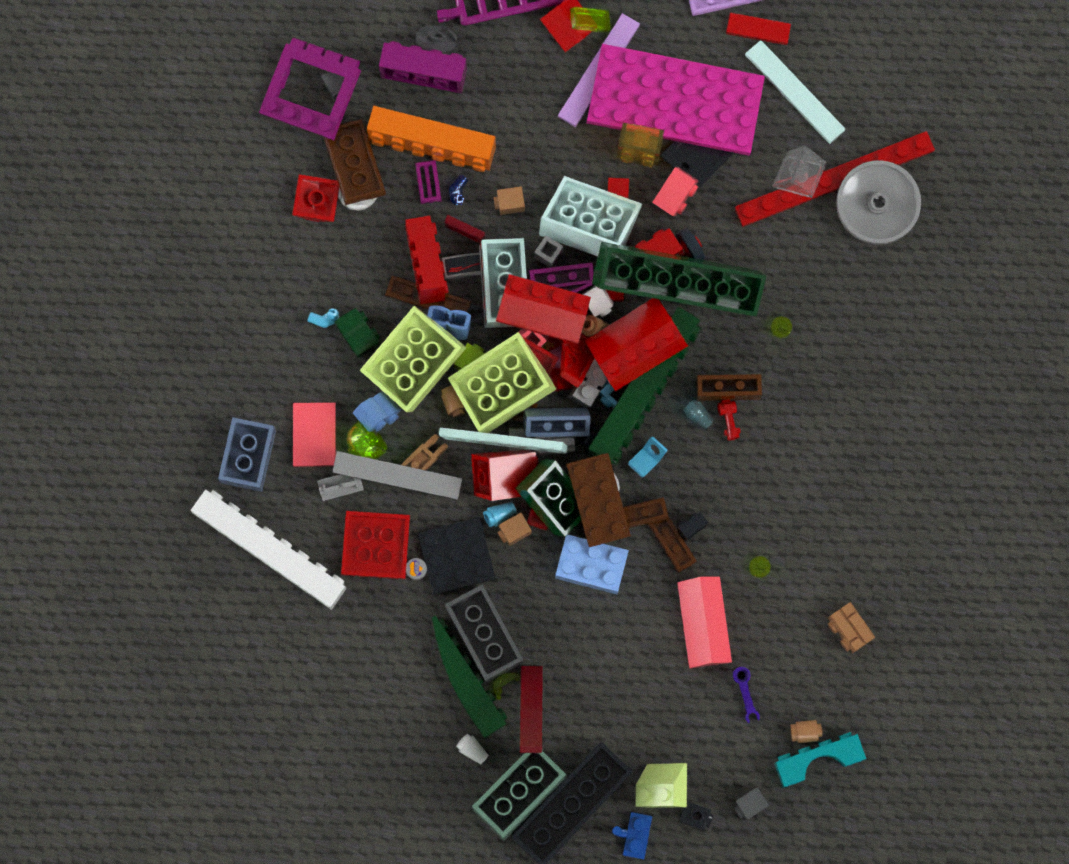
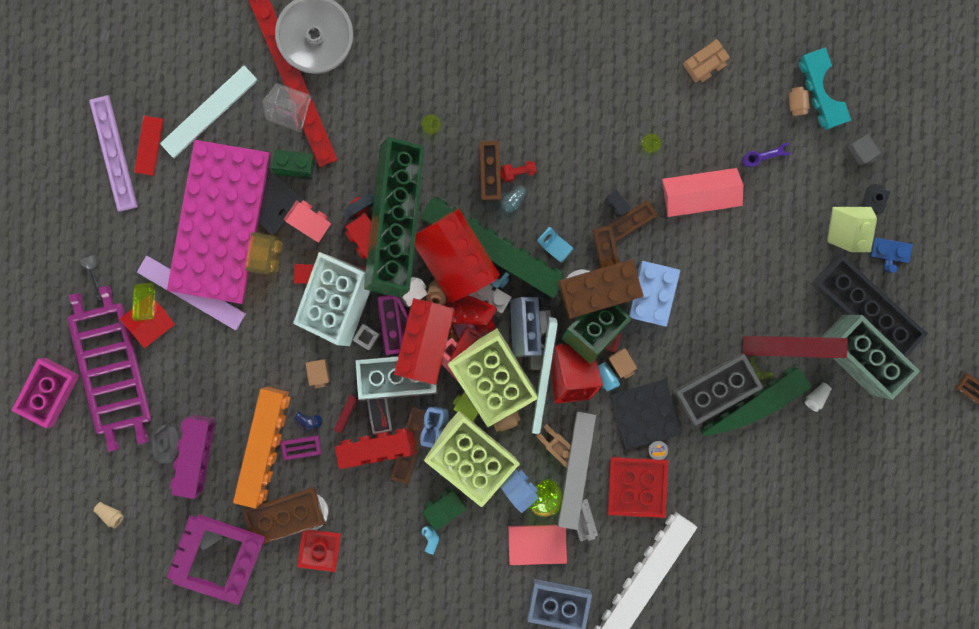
camera: 95 degrees left, 10 degrees up
(737, 178) = (293, 164): none -> dark green brick

